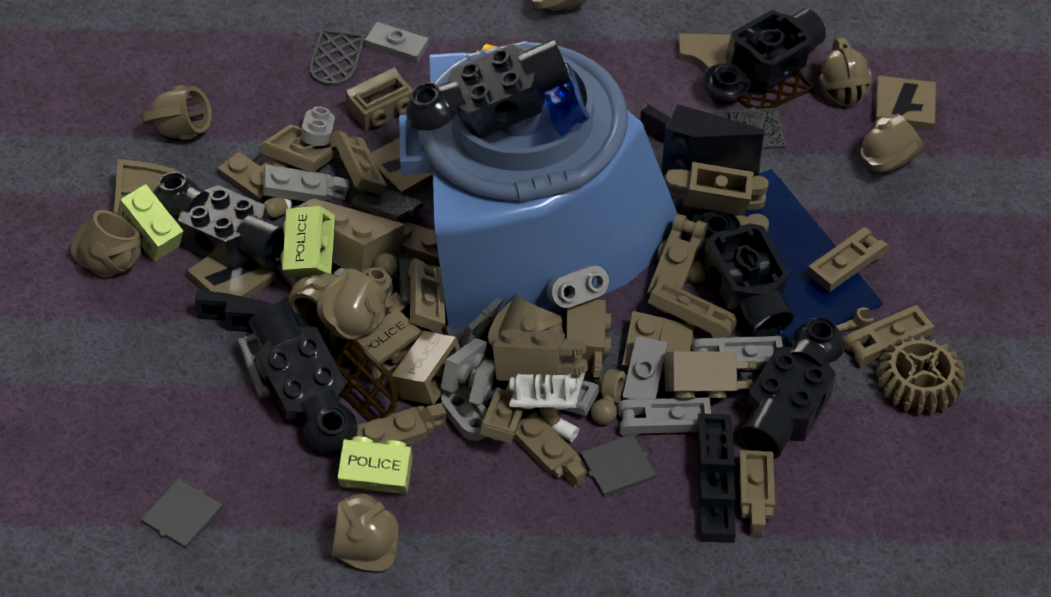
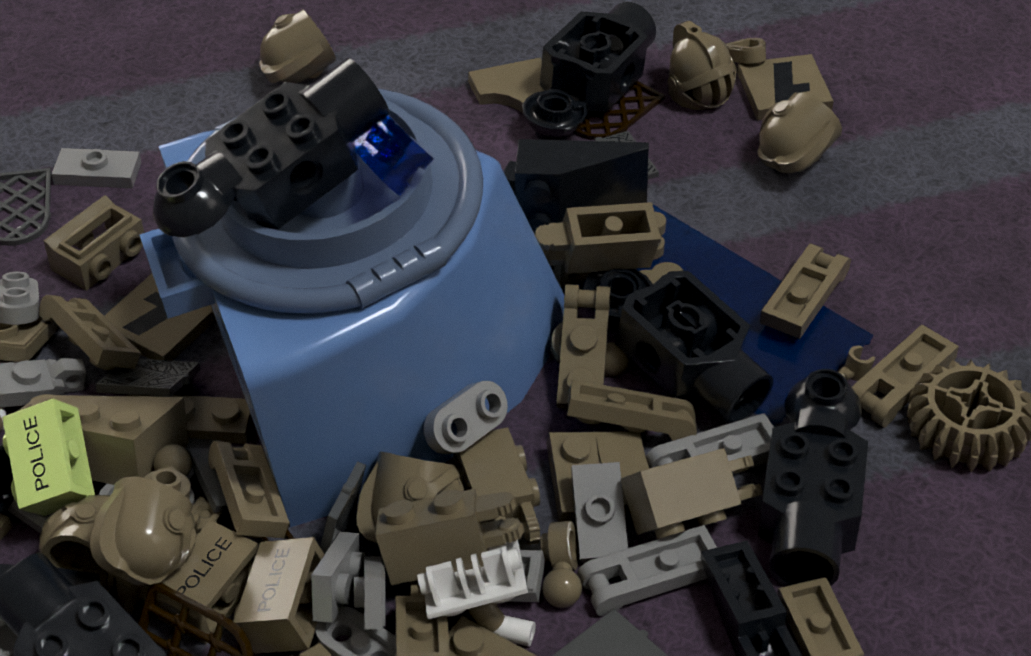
camera: 15 degrees left, 5 degrees down
(887, 68) = (748, 50): none -> dark tan tile

